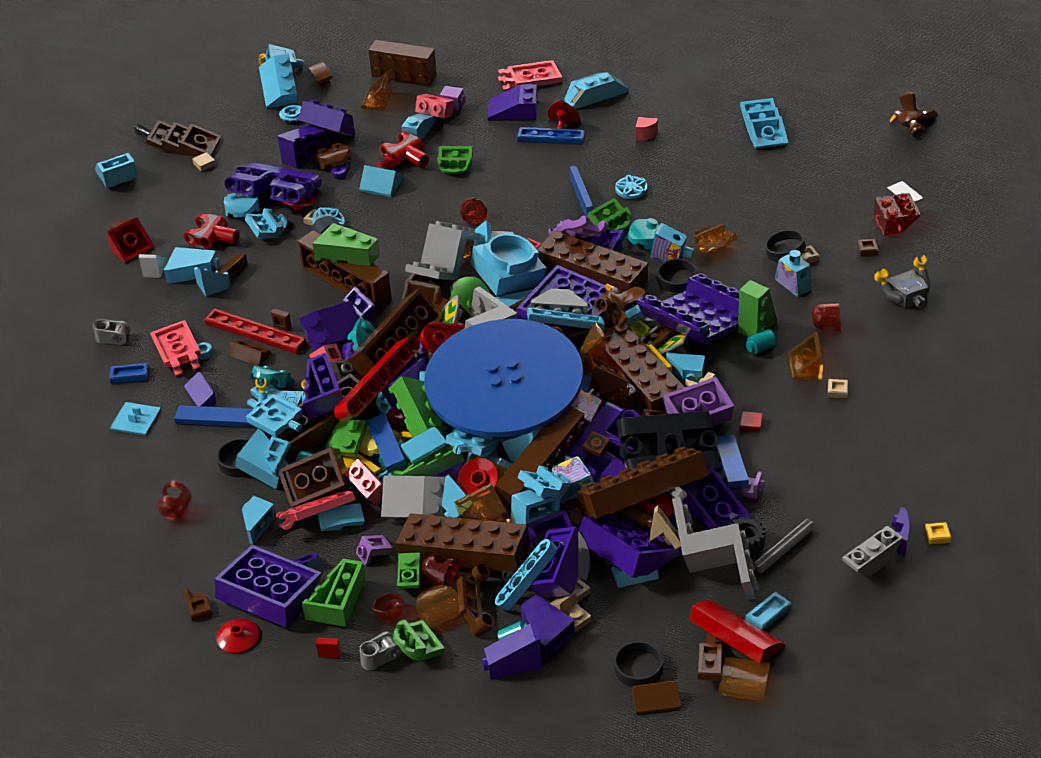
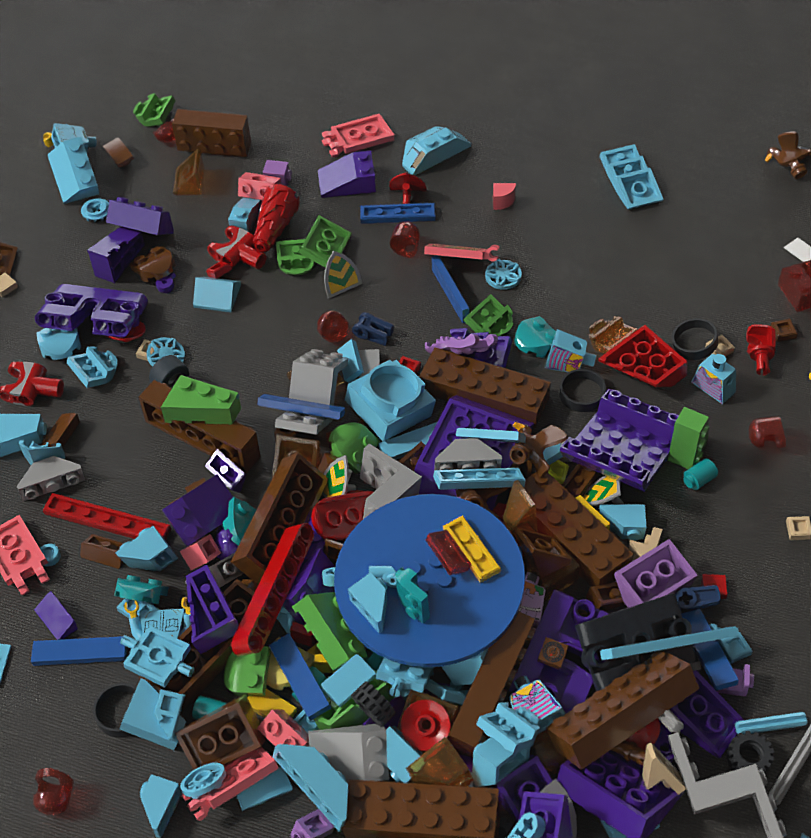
camera: 10 degrees left, 10 degrees up
(214, 295) = (49, 476): none -> light grey slope
(281, 319) = (136, 501): reddish brown tile -> none
(282, 350) = (147, 551): none -> medium azure slope
(298, 502) = (203, 780): none -> medium azure wheel
(357, 44) = (154, 110): none -> bright green slope
(362, 61) = (165, 133): none -> clear red hair
(381, 507) = (317, 779): none -> medium azure wedge
(430, 260) = (301, 406): none -> blue tile
(438, 458) = (373, 704): none -> black tyre
(444, 125) = (275, 214): none -> red cone
(450, 382) = (370, 599): none -> medium azure slope
(468, 367) = (387, 573): none -> medium azure arm
(481, 150) = (323, 240): none -> bright green tile
(484, 379) = (411, 596): none -> teal slope
(488, 174) = (340, 274): none -> shield
(508, 217) = (373, 329): none -> dark blue piece
(521, 356) = (448, 552): none -> clear red plate
(542, 357) = (482, 562): none -> yellow tile
(551, 151) = (403, 235): none -> clear red helmet
(583, 288) = (491, 435): none -> medium azure tile
(596, 165) = (463, 252): none -> coral tile
(699, 444) = (669, 643): none -> medium azure tile
(732, 424) = (701, 597): none -> dark blue piece
(738, 254) = (647, 359): none -> red wedge
(754, 461) = (733, 647): none -> medium azure tile
(773, 516) = (771, 723): none -> medium azure axle
(807, 359) = (758, 492): clear orange slope -> none
(842, 254) = (761, 346): none -> red piece

